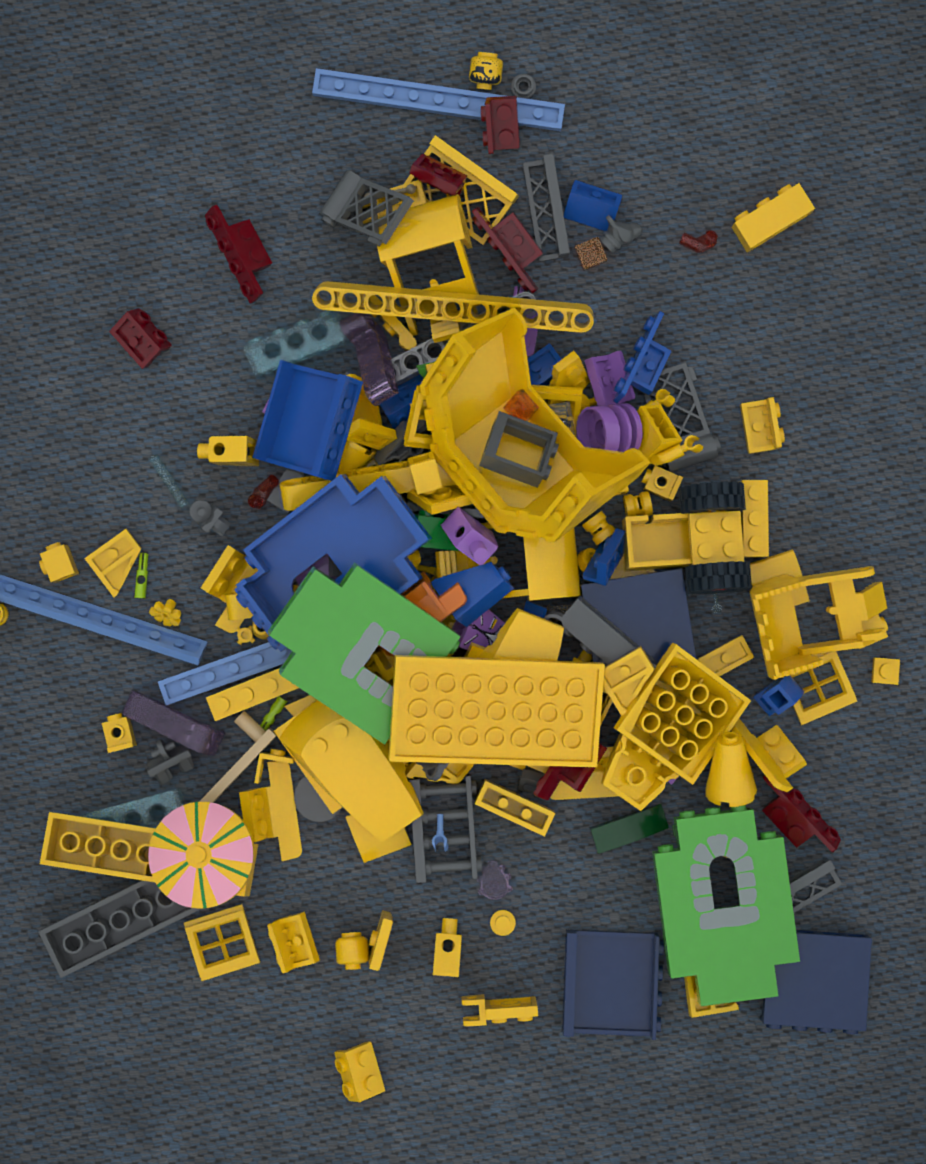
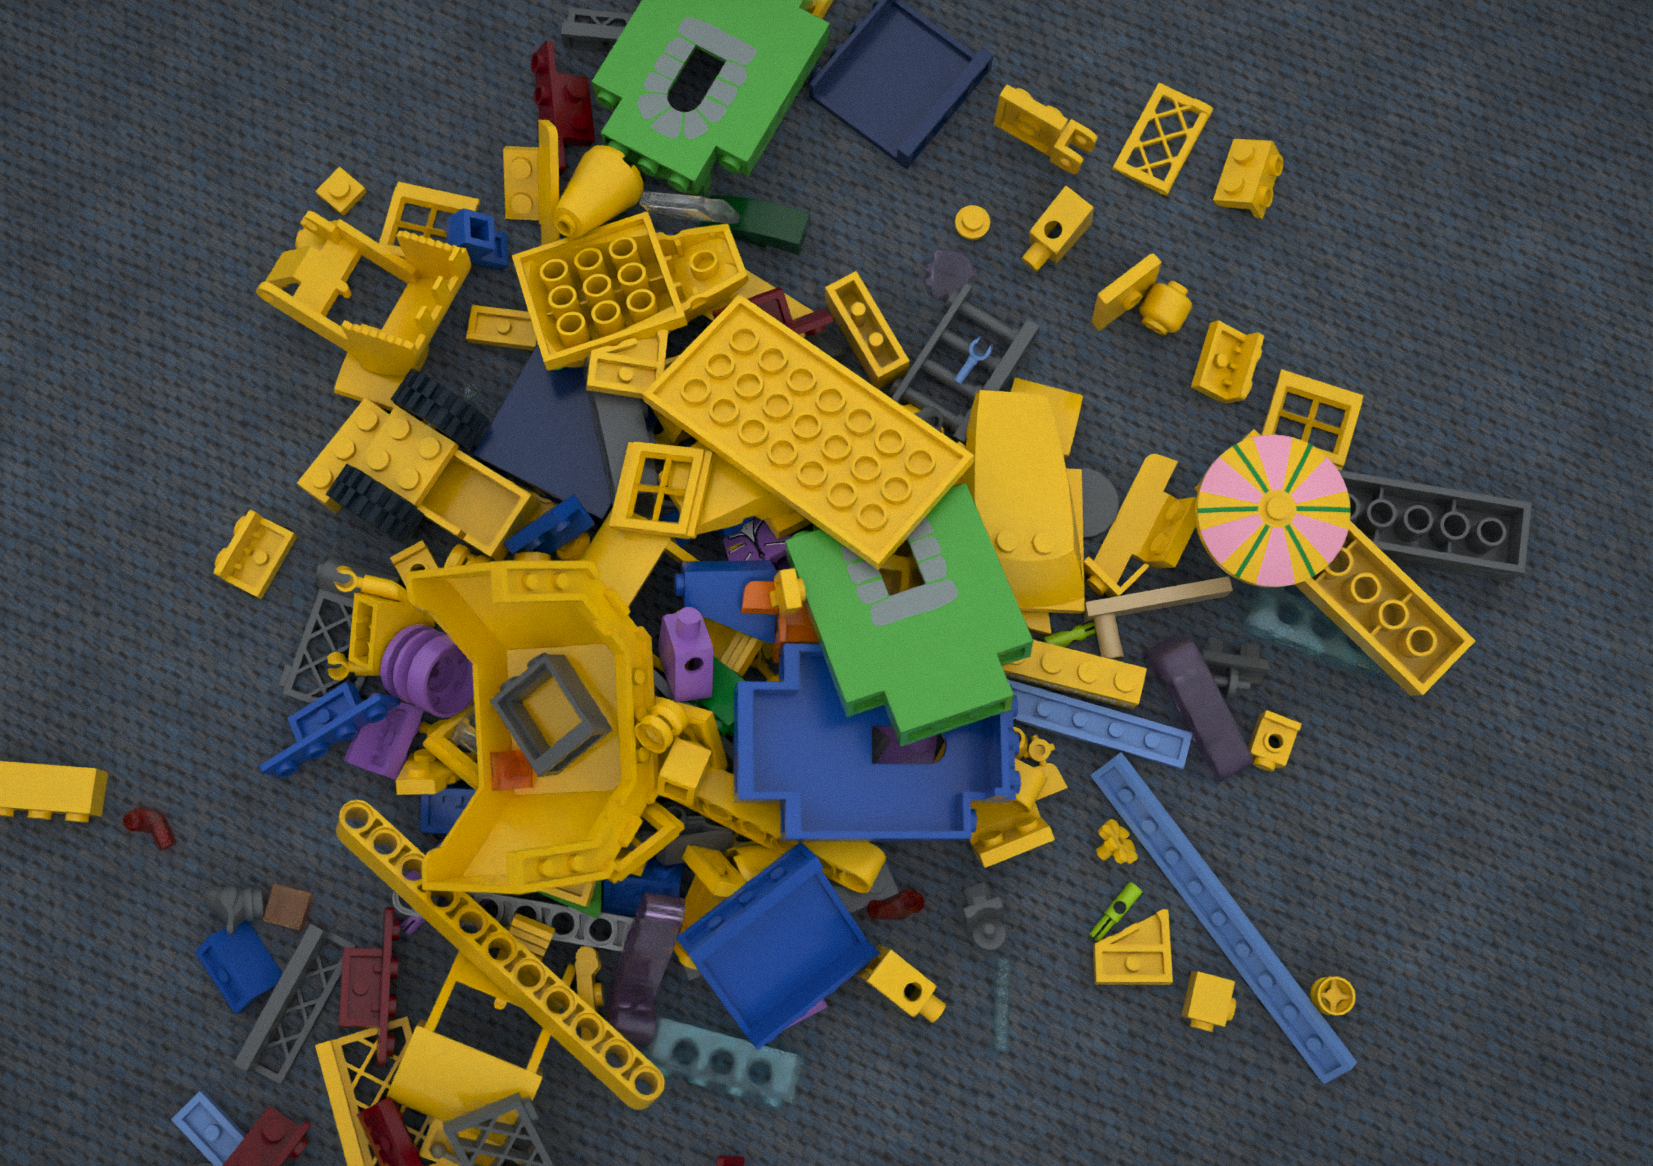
camera: 145 degrees left, 10 degrees down
(412, 1075) = (1149, 114): none -> yellow window
(435, 606) = (788, 592): none -> yellow plate
(454, 483) = (659, 728): none -> yellow wheel
(574, 609) = (694, 494): none -> yellow piece
(669, 804) = (689, 207): none -> clear slope

